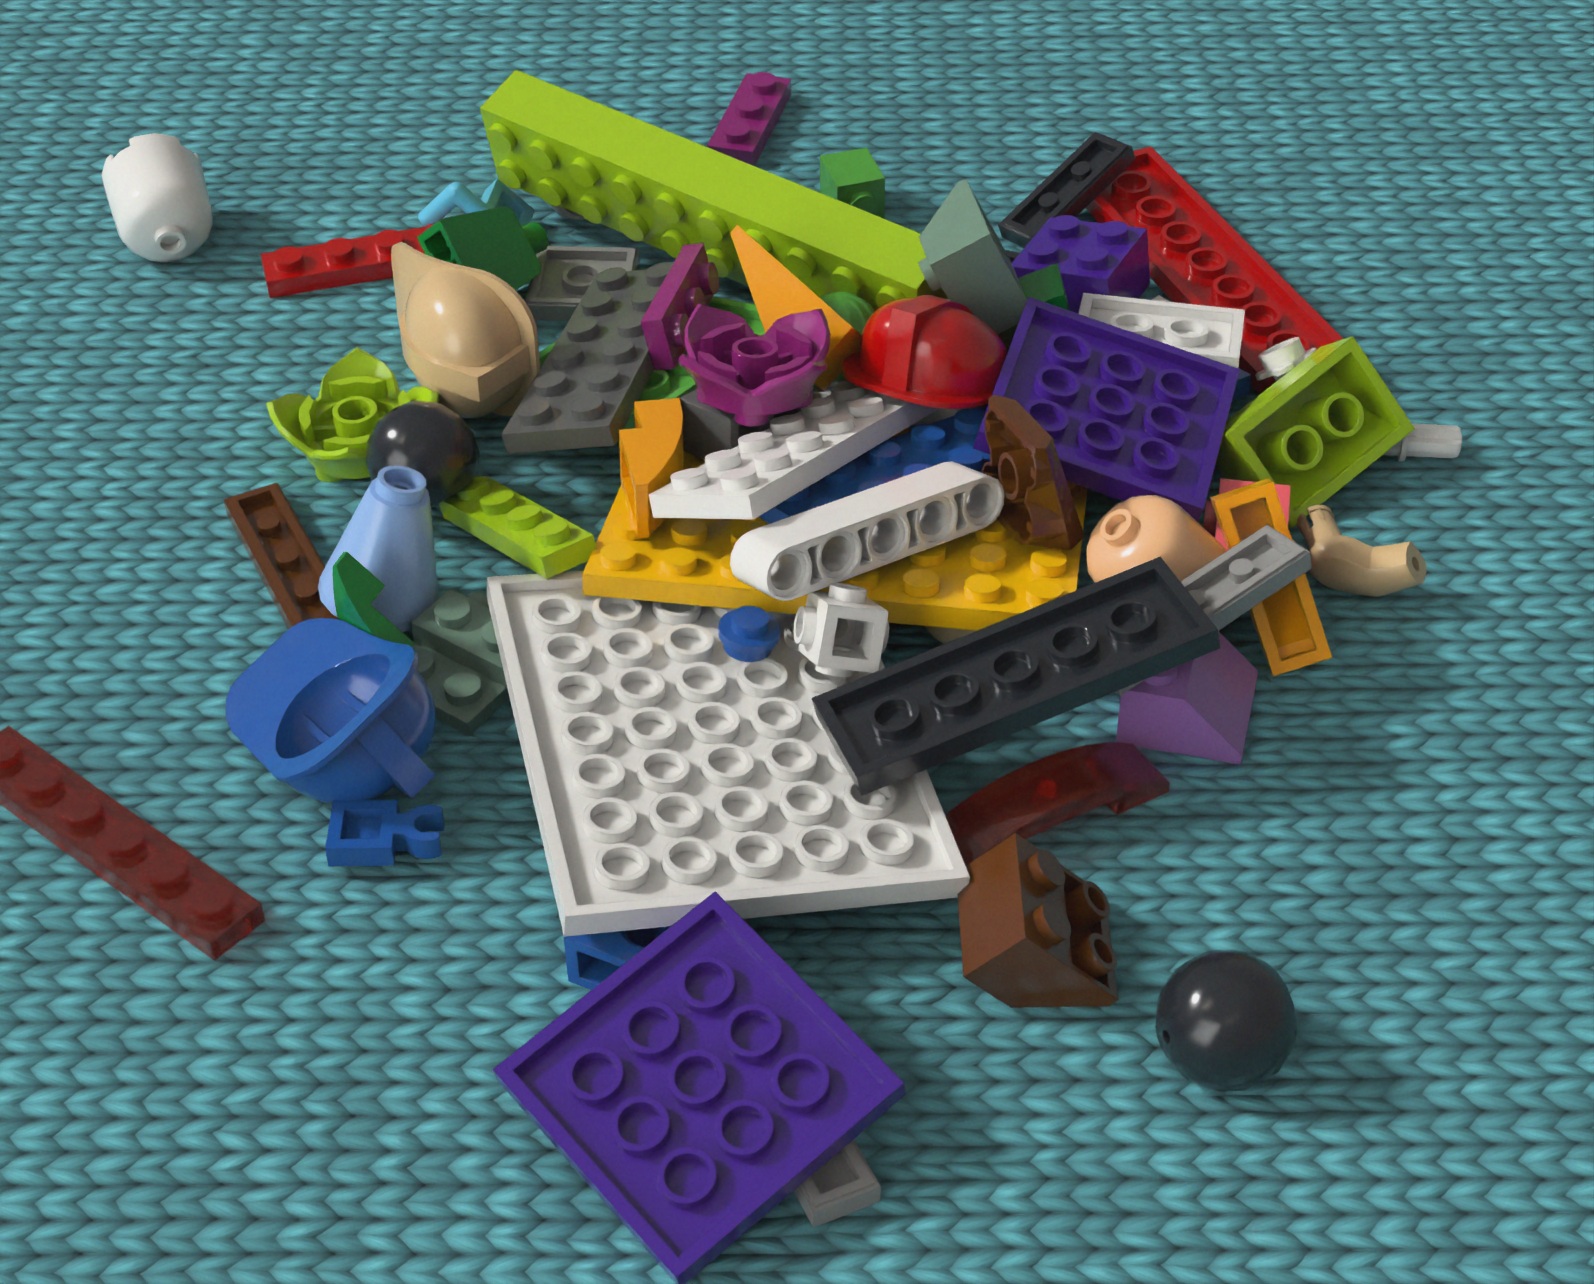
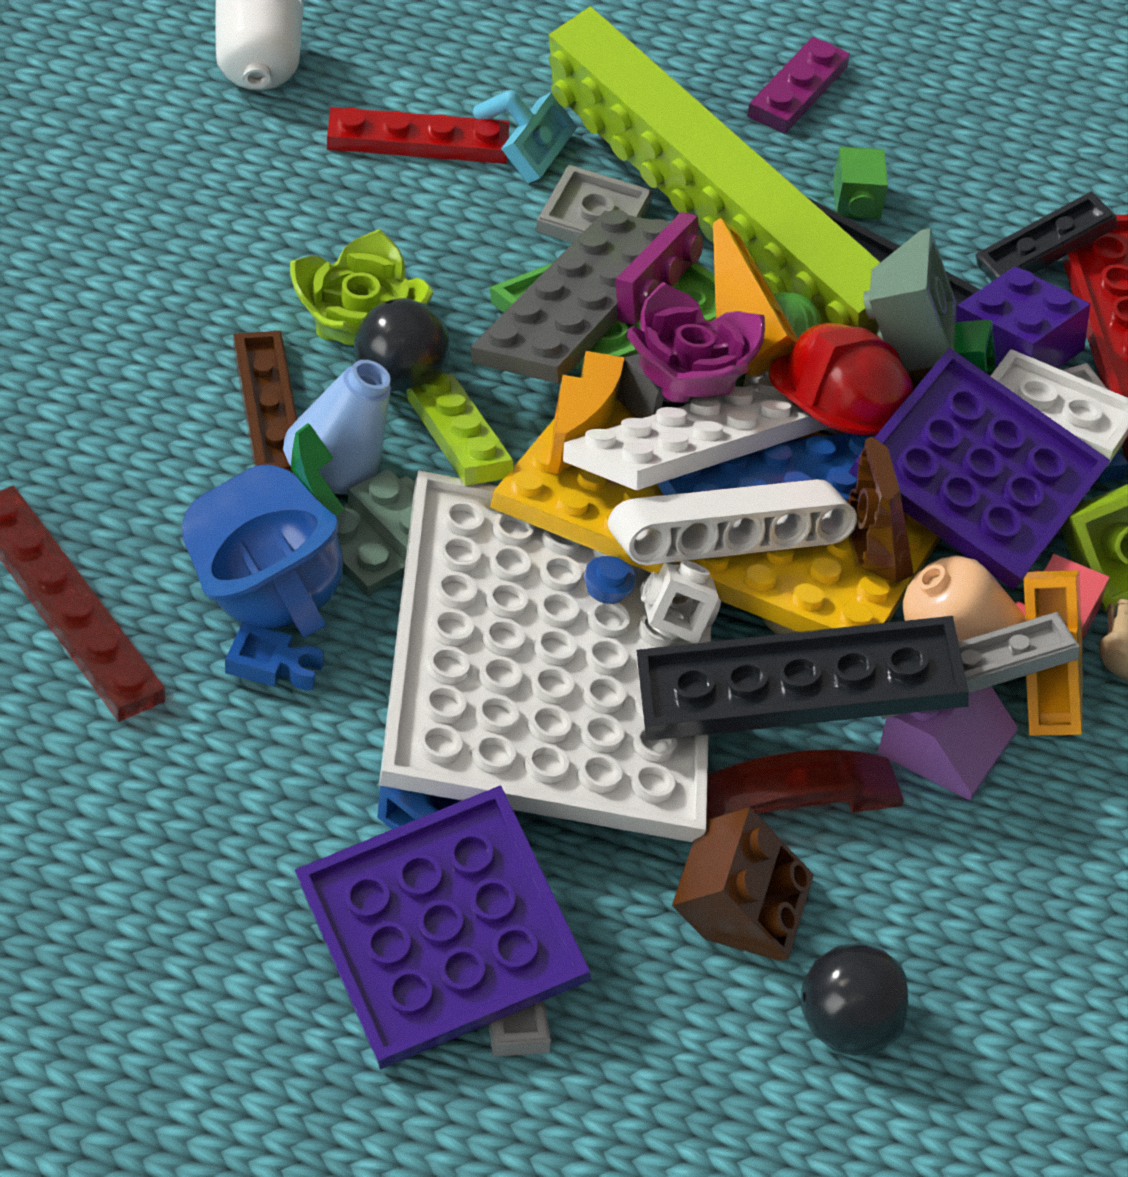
camera: 10 degrees right, 5 degrees up
(464, 333) = (469, 245): tan piece -> none
(488, 242) = (514, 170): green torso -> none

